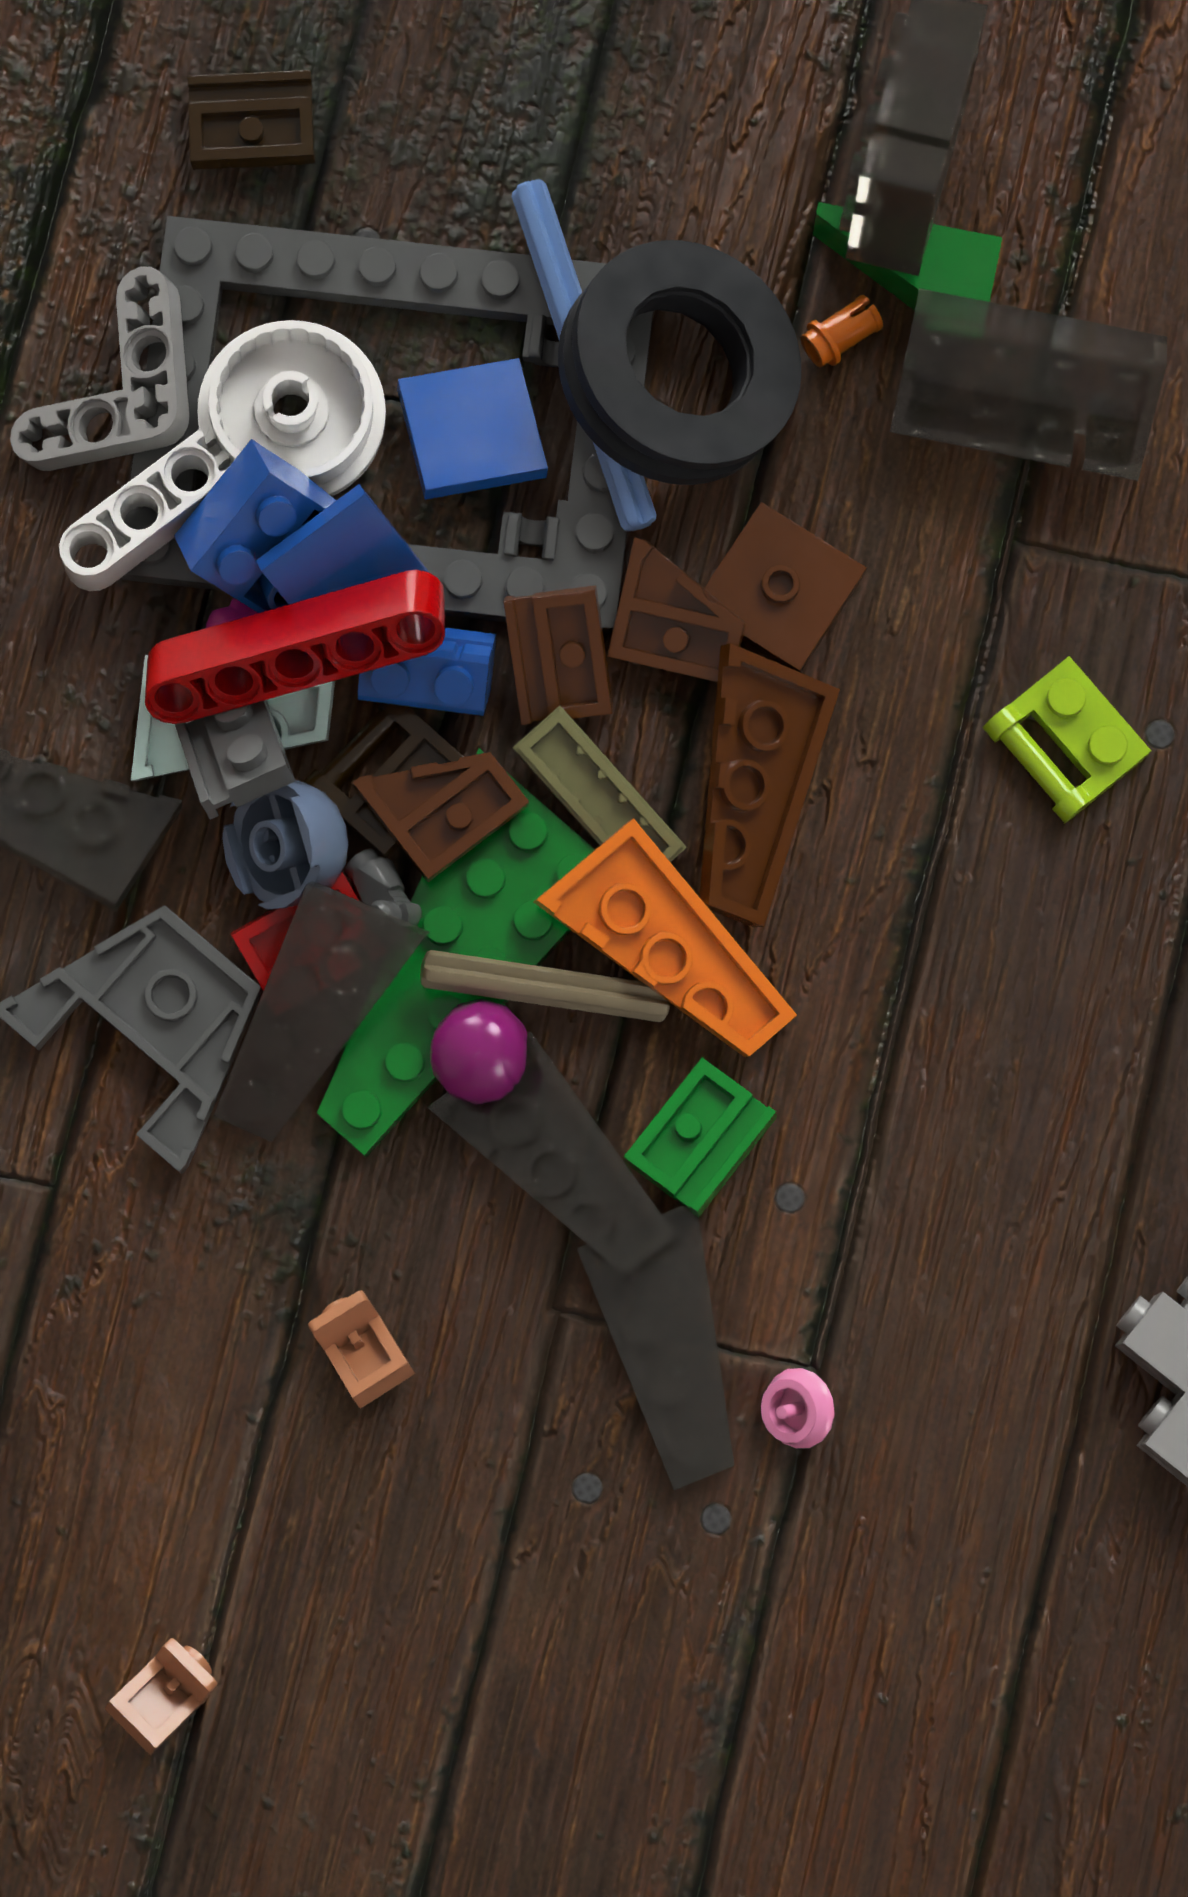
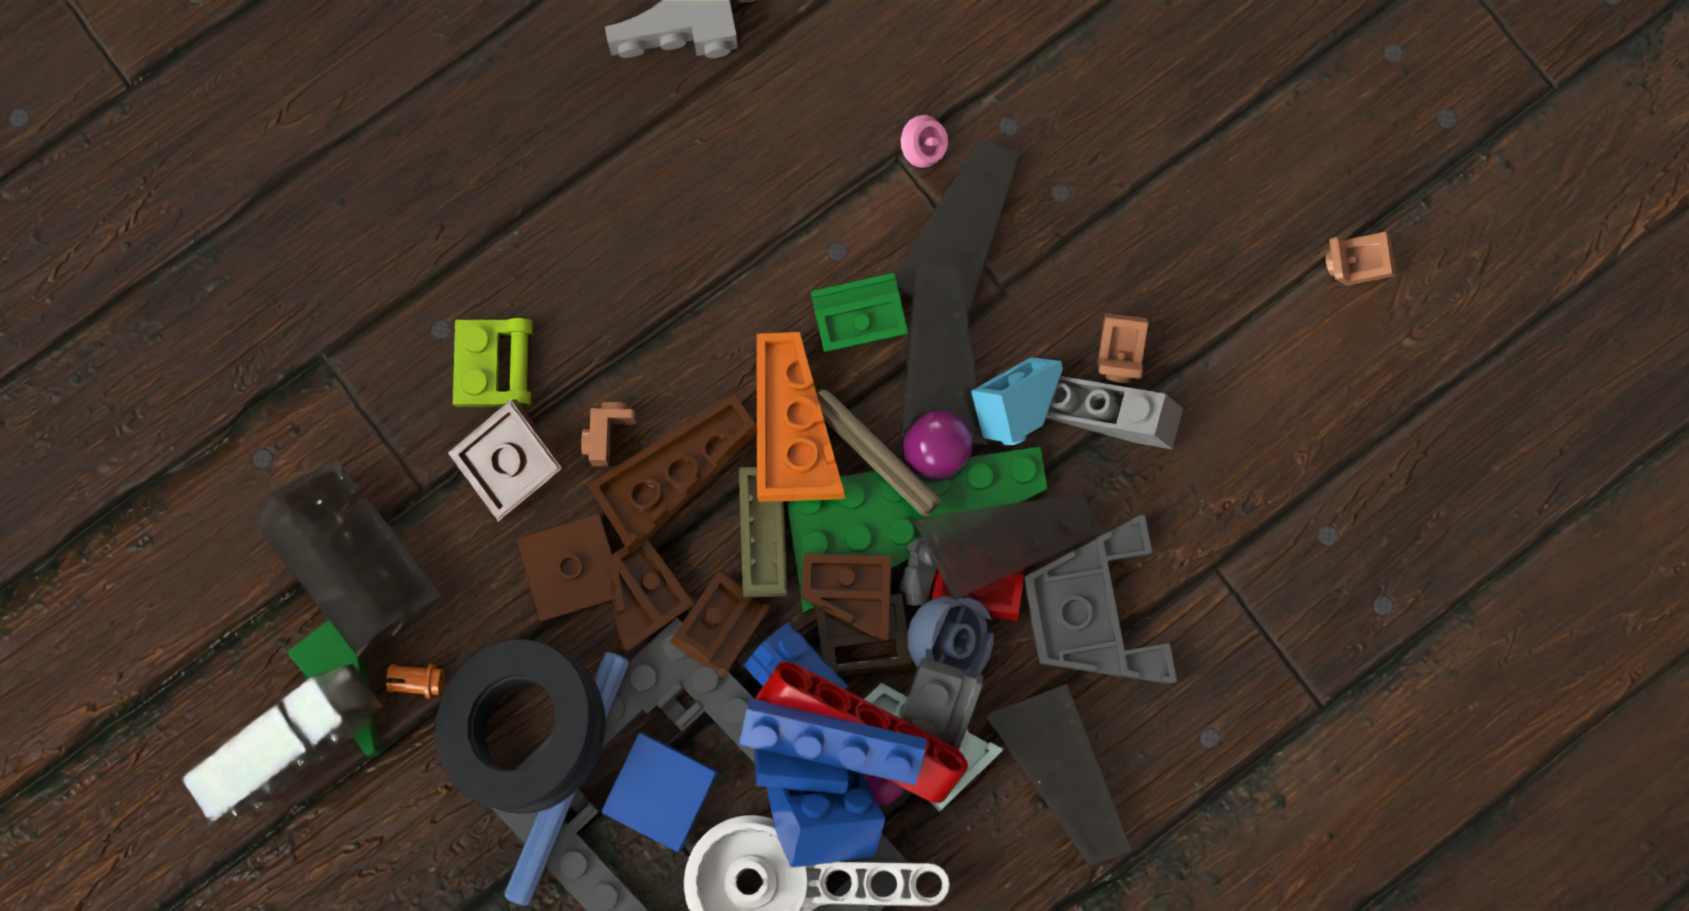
camera: 145 degrees left, 0 degrees up
(314, 600) = (832, 741): none -> blue plate
(314, 1264) = (1116, 411): none -> light grey slope
(433, 1183) = (1017, 400): none -> medium azure slope
(873, 750) = (597, 439): none -> nougat bracket
(952, 643) = (507, 460): none -> plate

